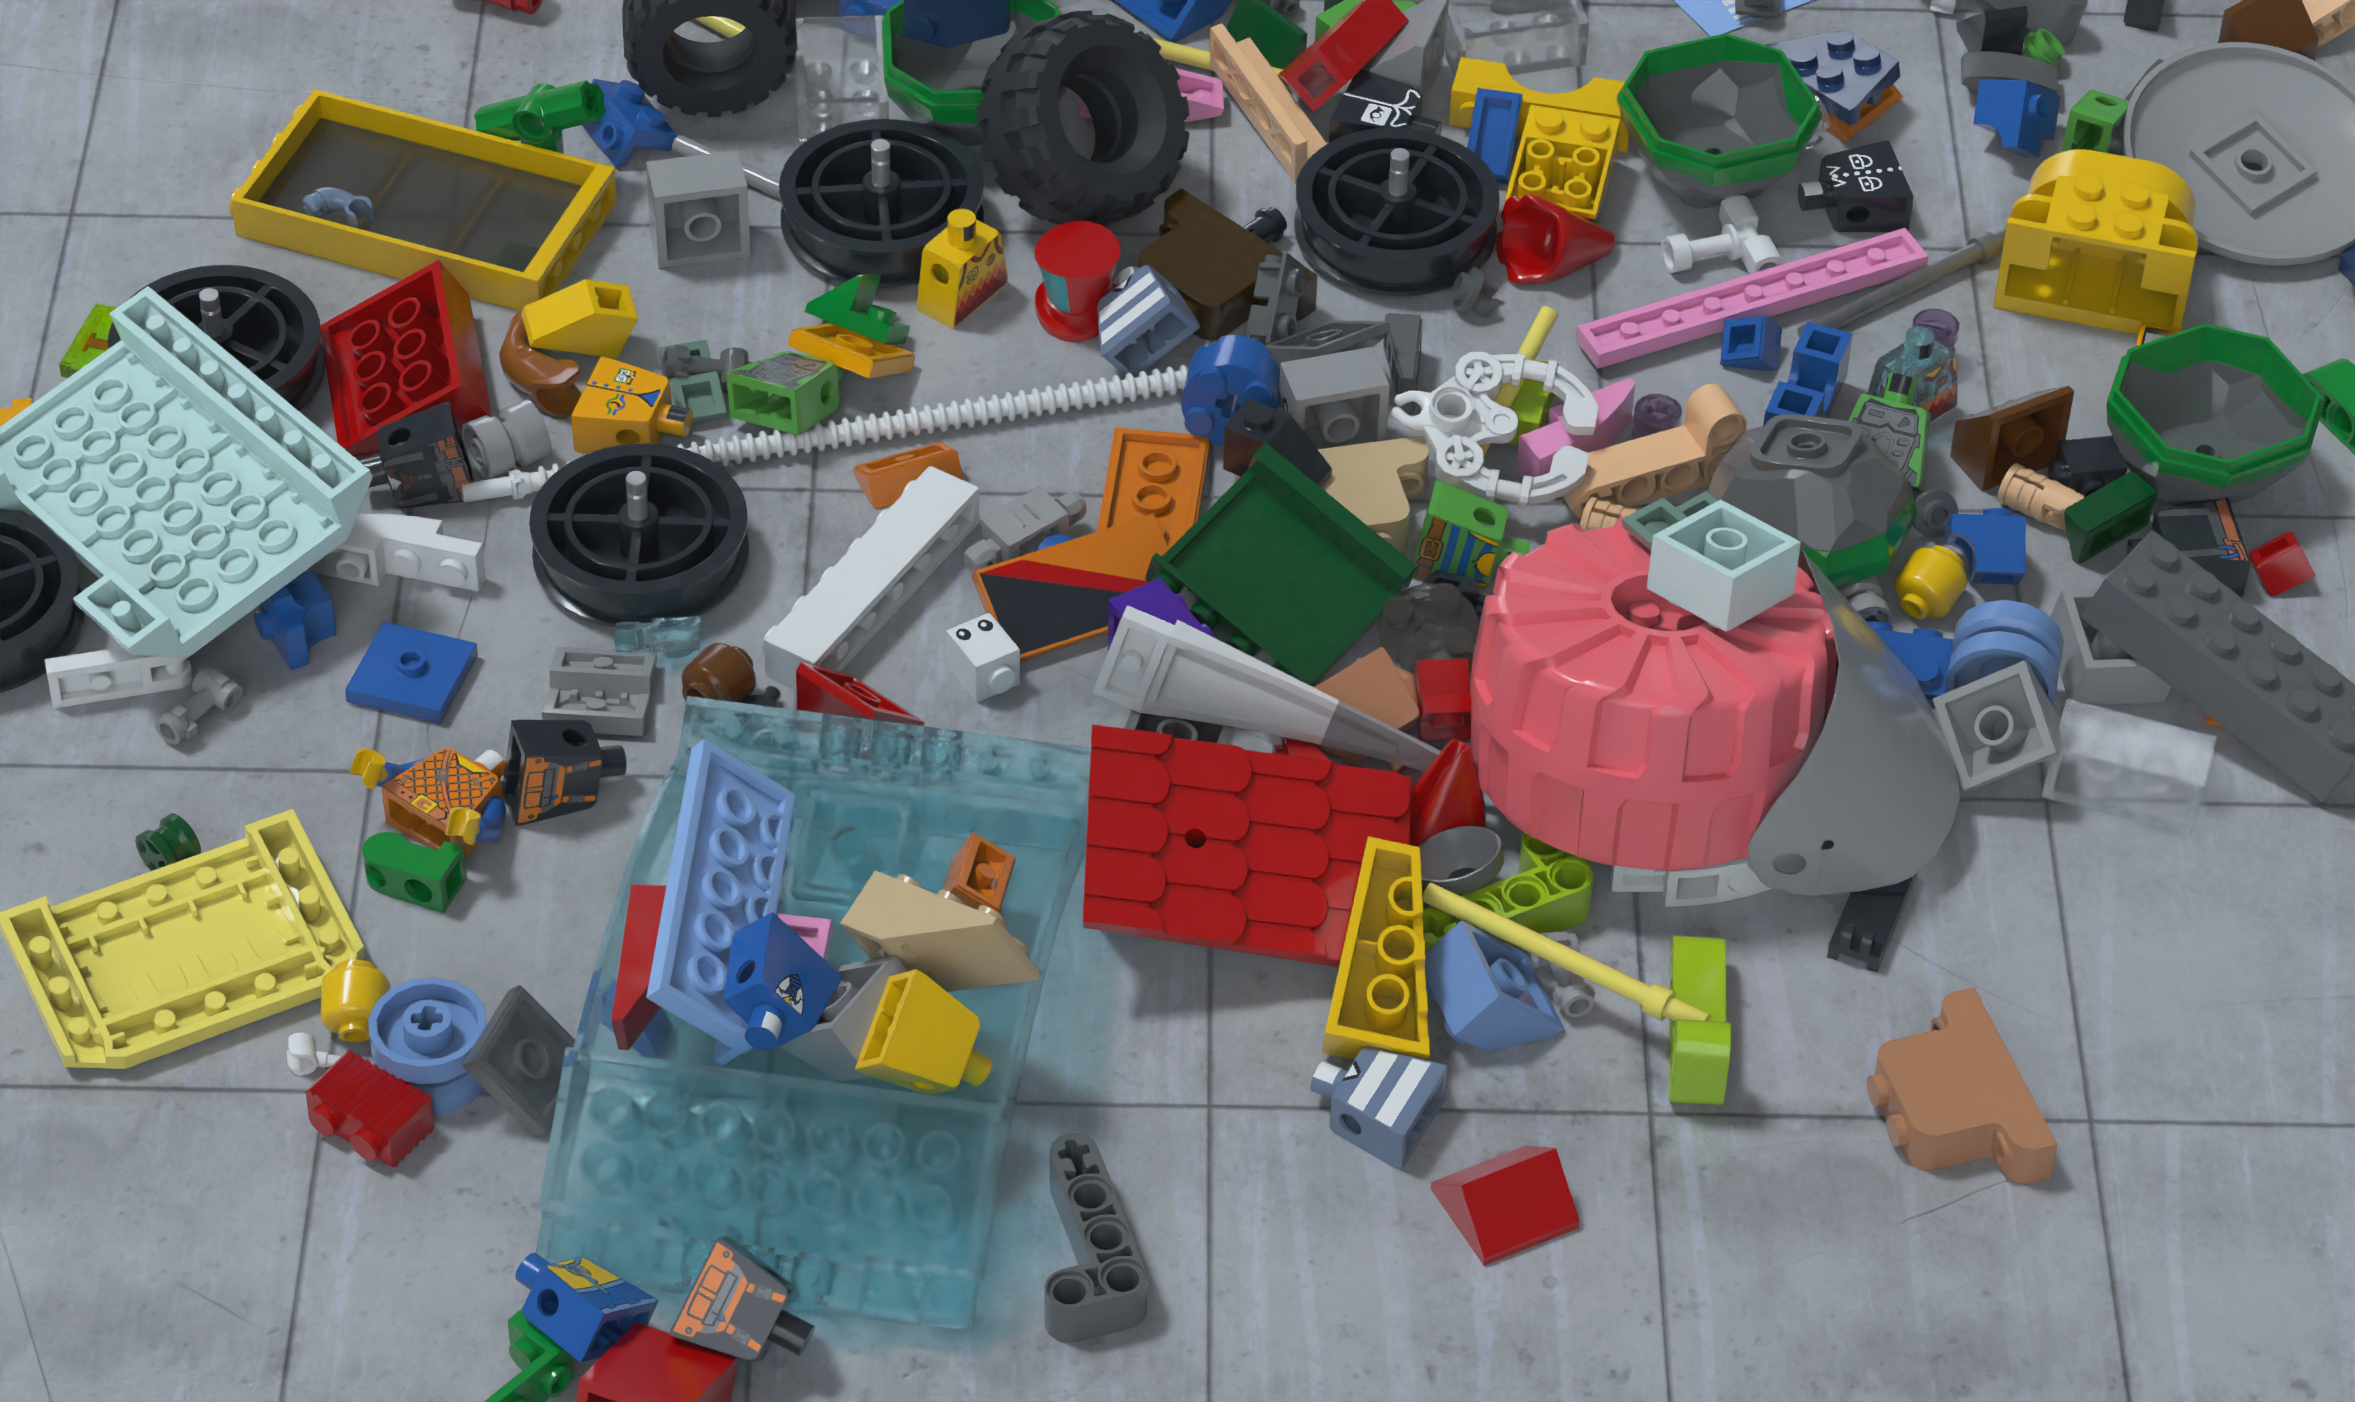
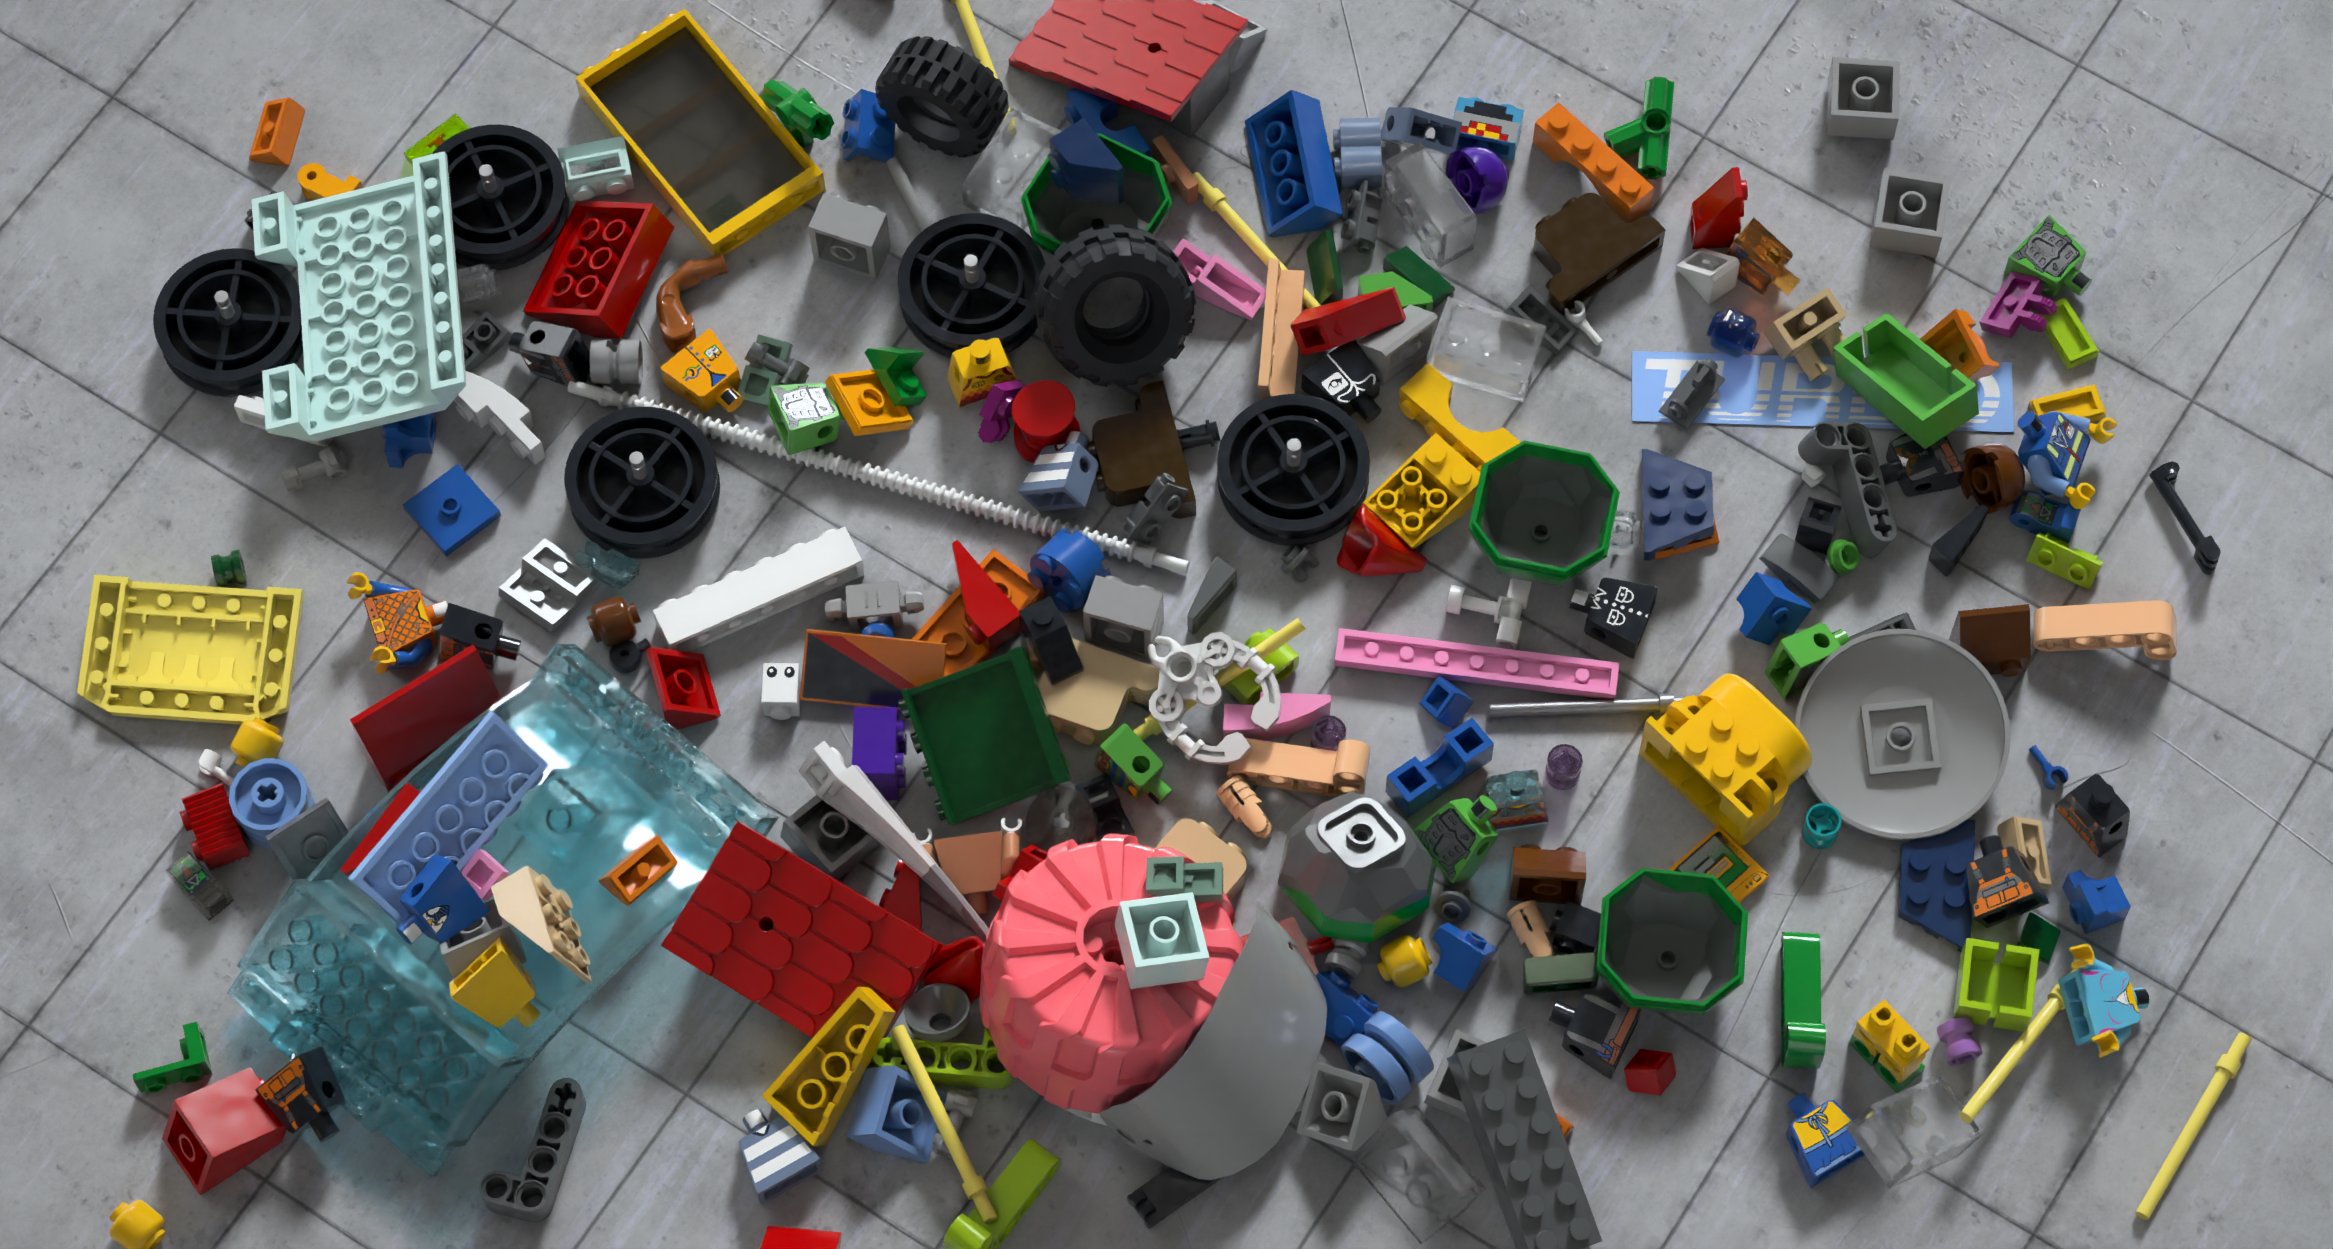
camera: 35 degrees right, 20 degrees up
(331, 273) = (596, 168): none -> light aqua window
(333, 199) = (633, 110): sand blue arm -> none
(397, 1181) = (199, 885): none -> leg
(414, 871) = (345, 659): green leg -> none
(571, 858) = (424, 715): none -> red slope
(581, 1304) = (226, 1040): blue torso -> none
(582, 319) = (718, 290): yellow slope -> none
(887, 477) = (837, 510): orange slope -> none
(1019, 285) = (997, 411): none -> magenta hinge
(1153, 465) = (987, 609): none -> red slope
(1329, 338) = (1155, 559): flat silver slope -> none
(1495, 130) = (1405, 436): blue tile -> none
(2244, 281) = (1823, 818): none -> teal wheel

